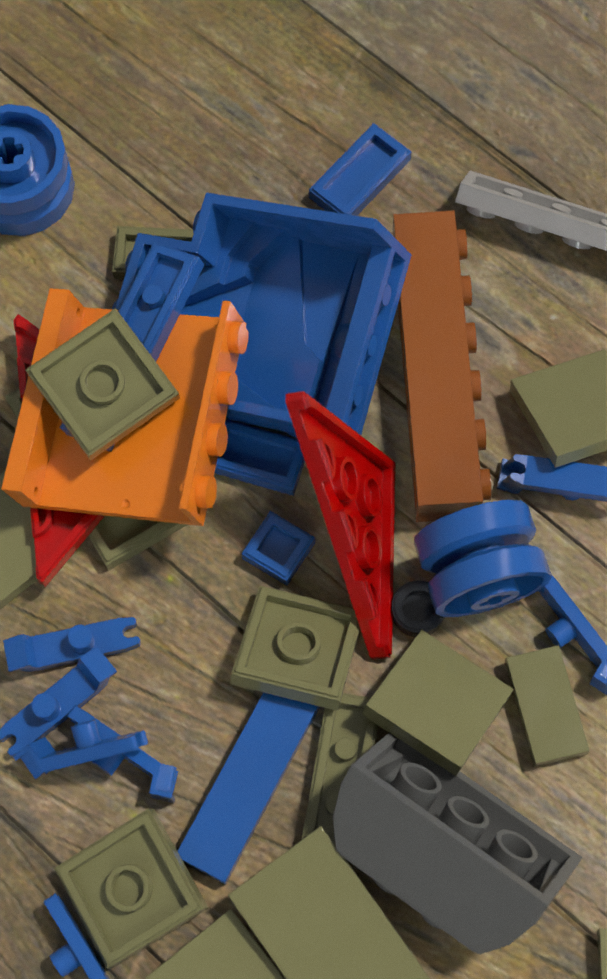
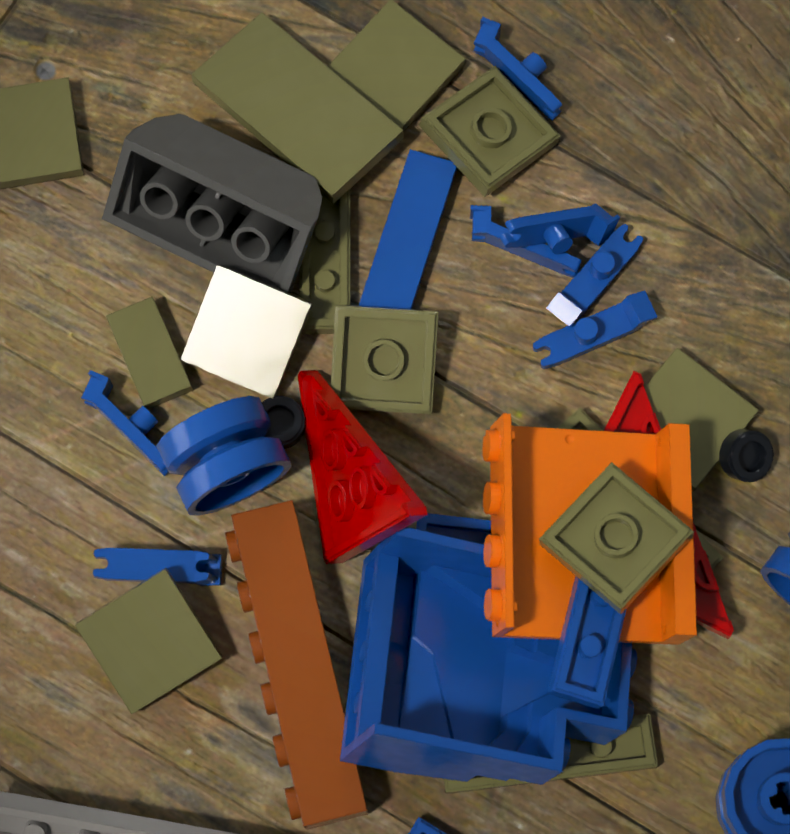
camera: 170 degrees right, 5 degrees up
(278, 548) = (422, 456): blue tile -> none

